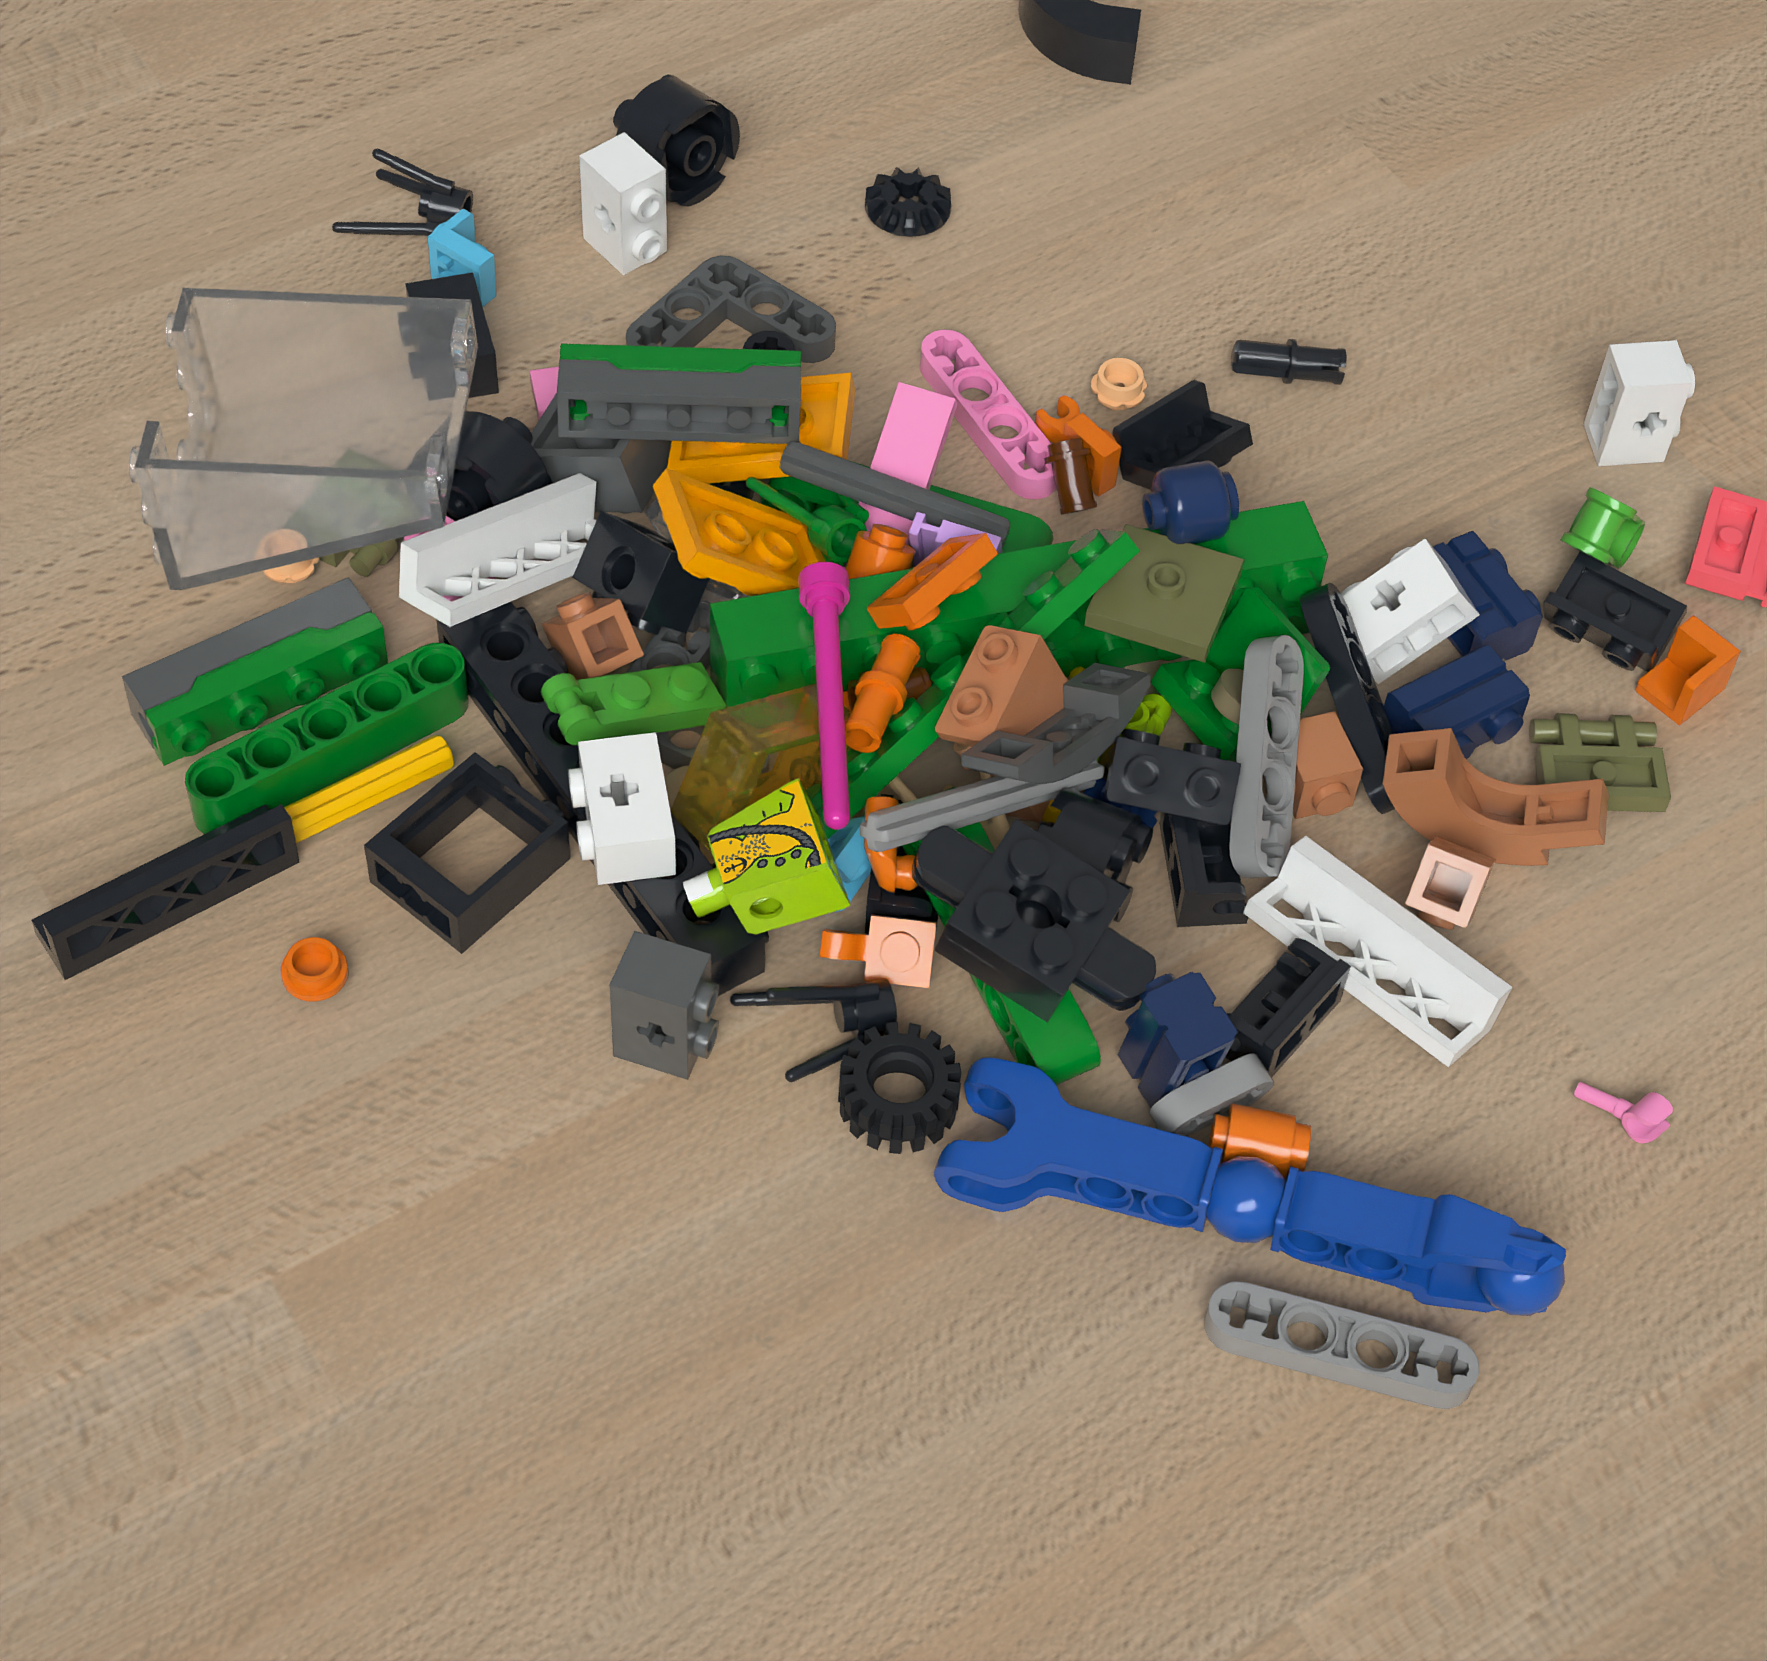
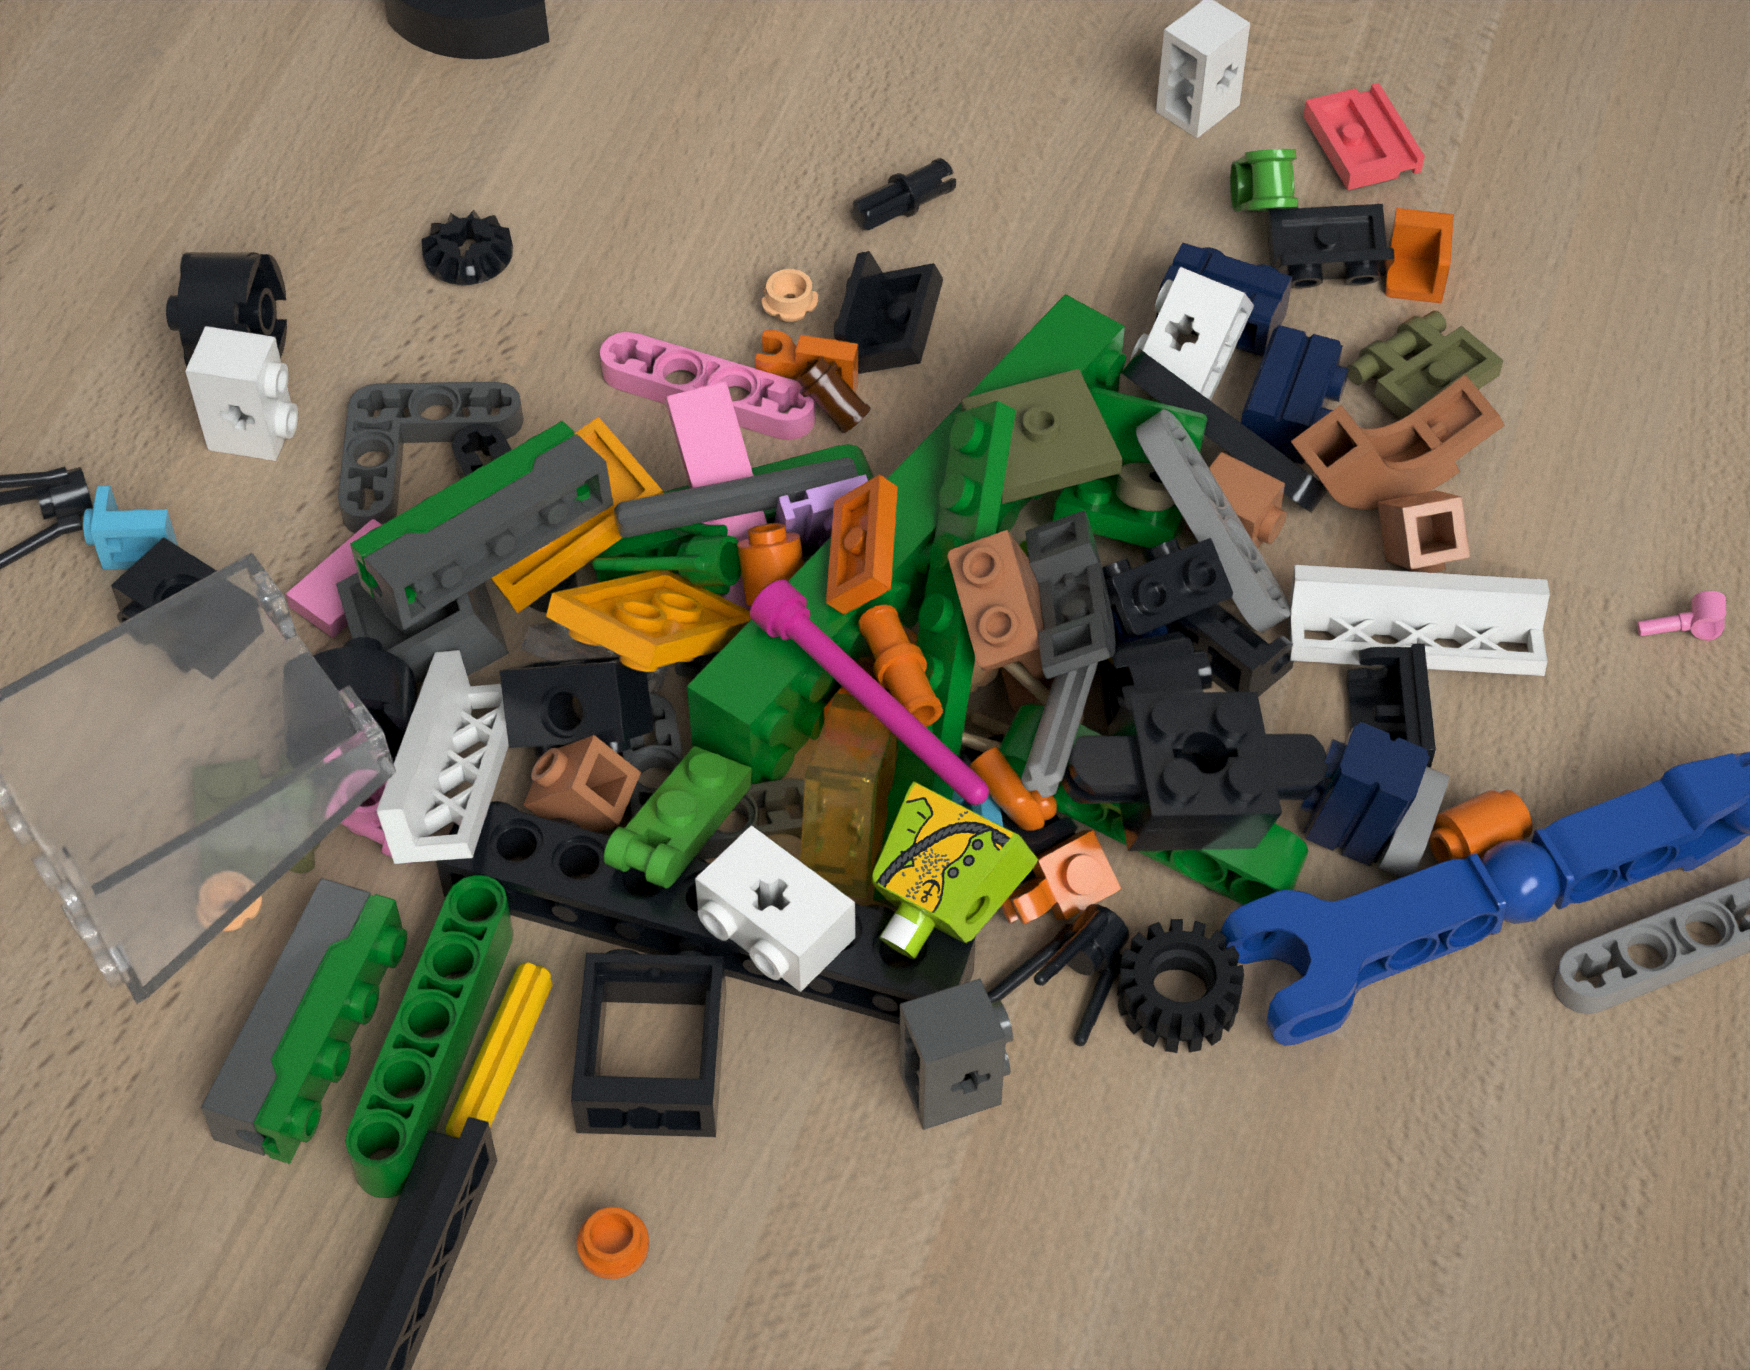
camera: 35 degrees left, 0 degrees up
(1191, 503) = (1002, 347): dark blue head -> none

